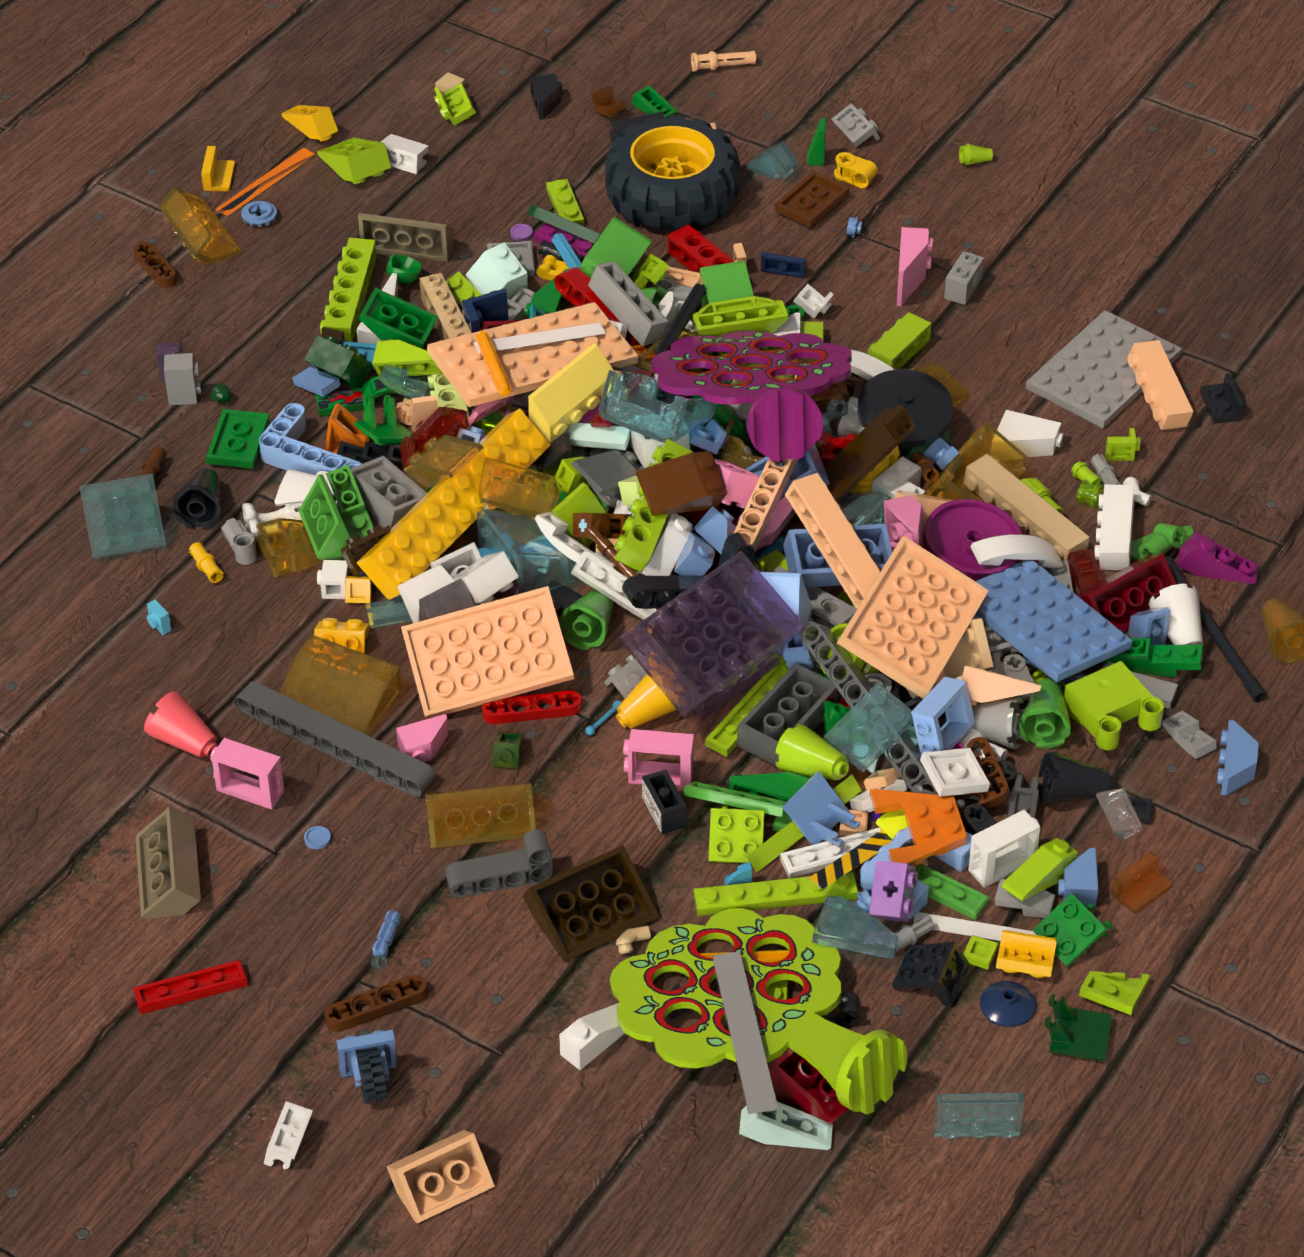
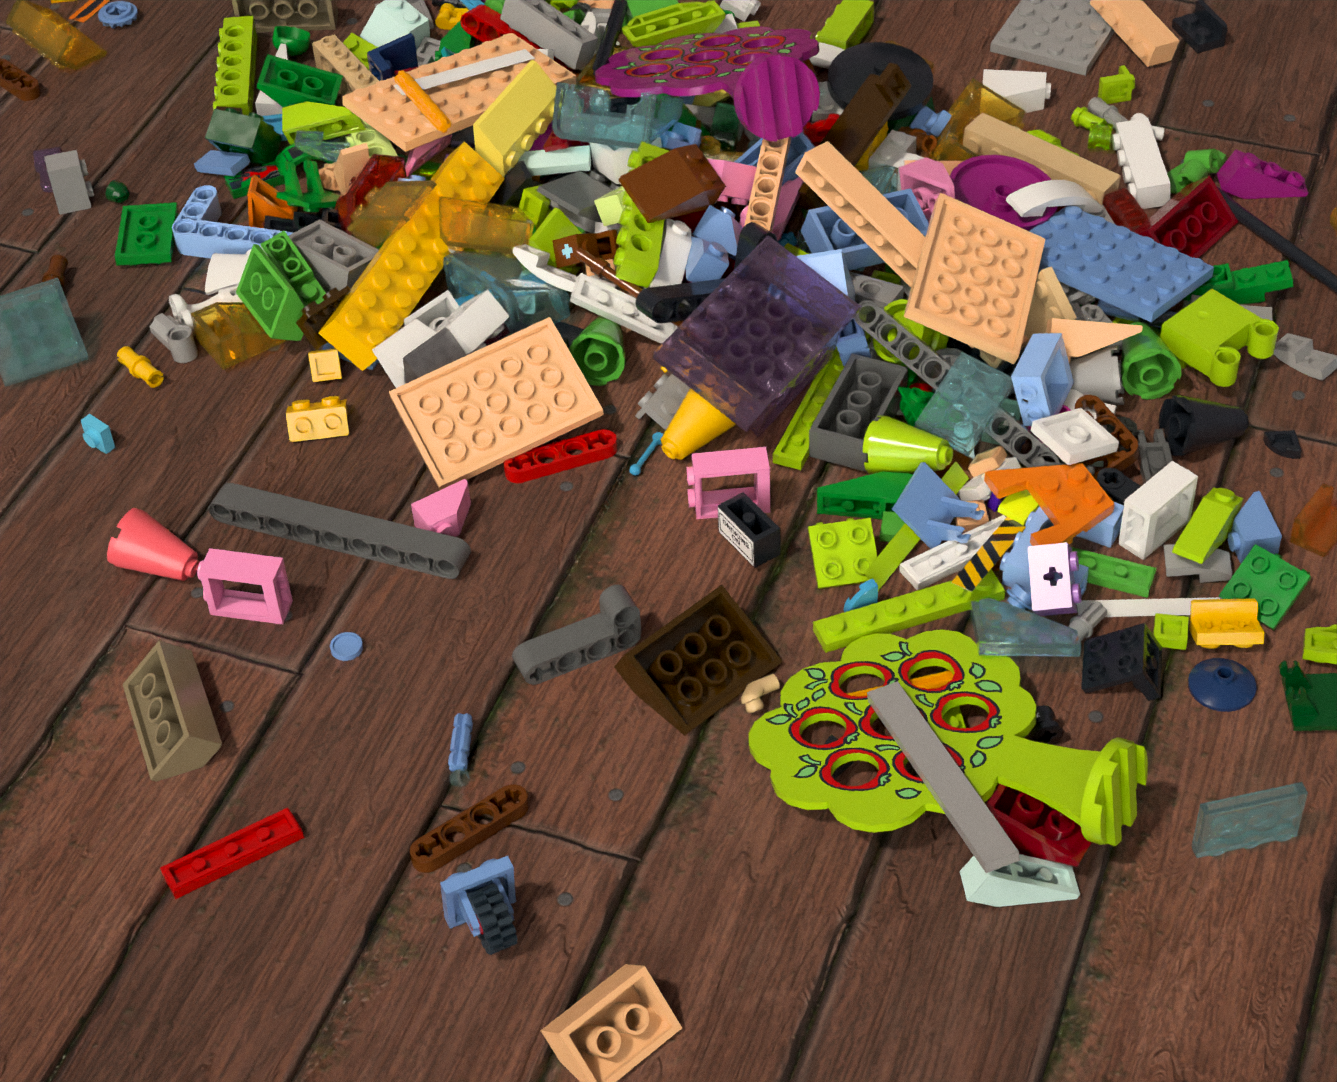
camera: 10 degrees left, 0 degrees up
(199, 500) = (117, 303): black cone -> none
(287, 1134) = (403, 1015): white hinge -> none
(333, 579) = (293, 359): white brick -> none
(342, 683) = (333, 466): clear yellow slope -> none
(387, 612) = (364, 384): clear light blue slope -> none
(480, 814) = (536, 584): clear yellow slope -> none
(507, 749) = (546, 507): dark green bracket -> none
(590, 1036) = (746, 817): white slope -> none
(735, 798) = (830, 511): bright green tile -> none
(1120, 813) = (1266, 450): clear slope -> none
(1150, 624) = (1223, 248): medium blue slope -> none
(1185, 614) = (1247, 235): white cone -> none

